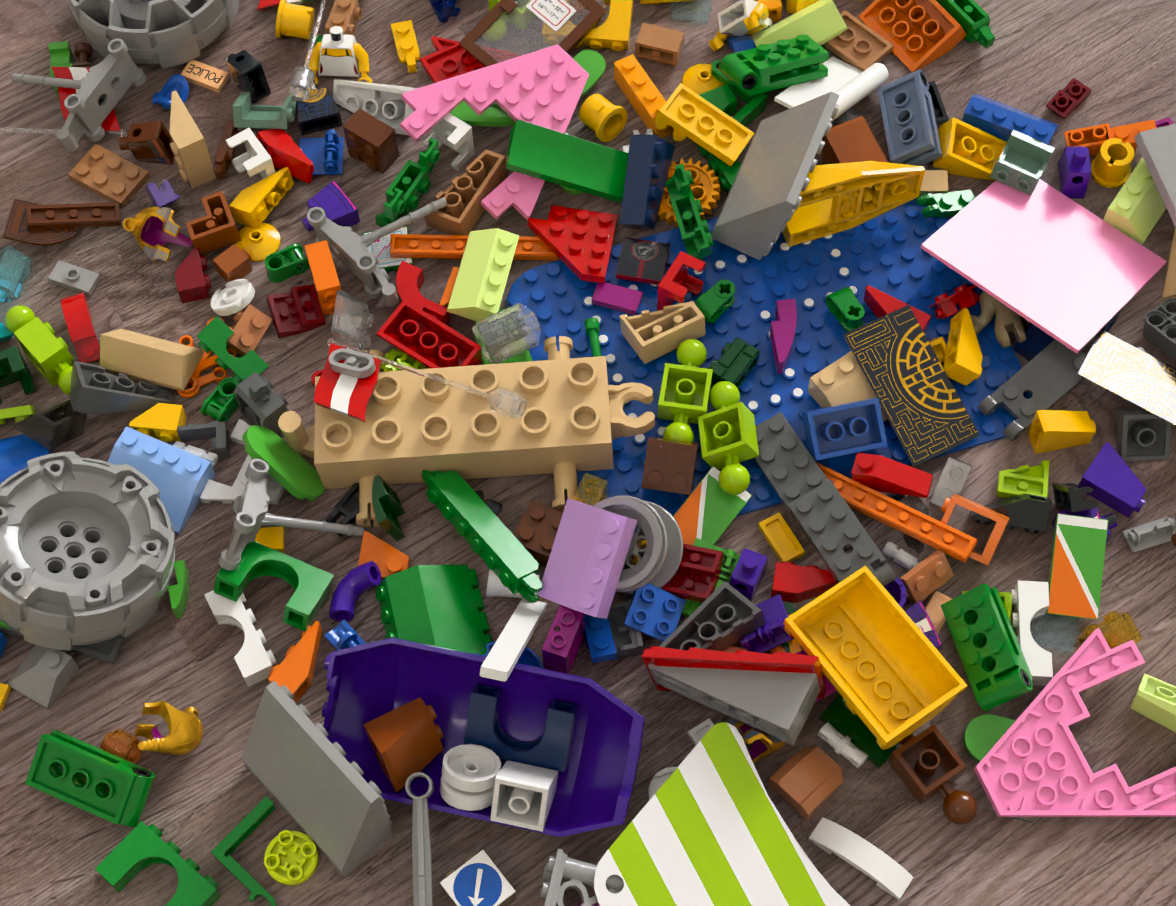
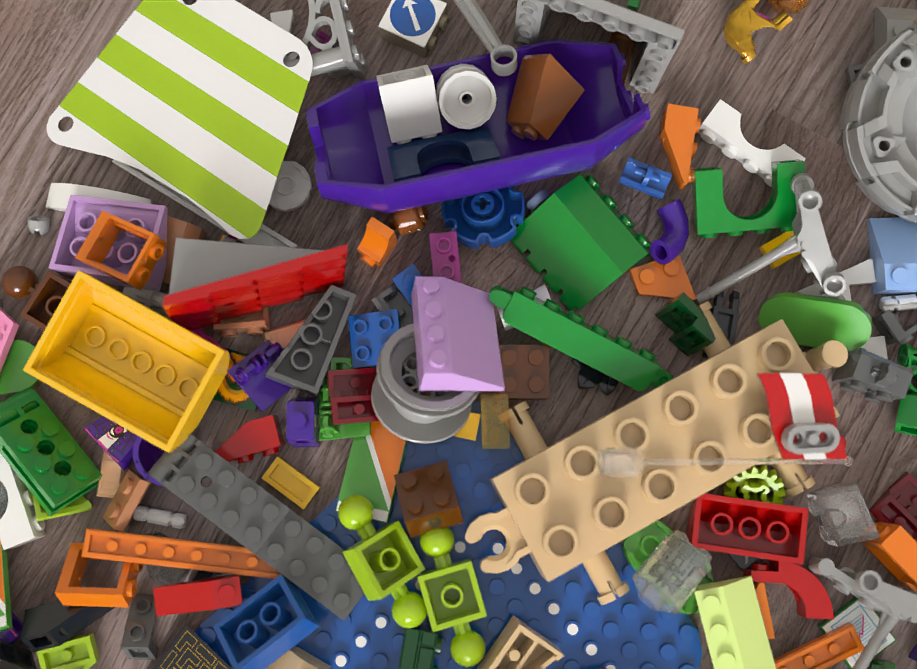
camera: 155 degrees right, 20 degrees up
(179, 592) = (827, 152): bright green slope -> none
(512, 640) = (481, 202): white tile -> none
(592, 329) = (588, 633): green bar -> none
(619, 687) = (377, 243): none -> orange arch
(857, 796) = (78, 222): none -> lavender slope
(878, 768) = (107, 230): none -> orange window
(920, 865) = (39, 223): none -> light grey hinge

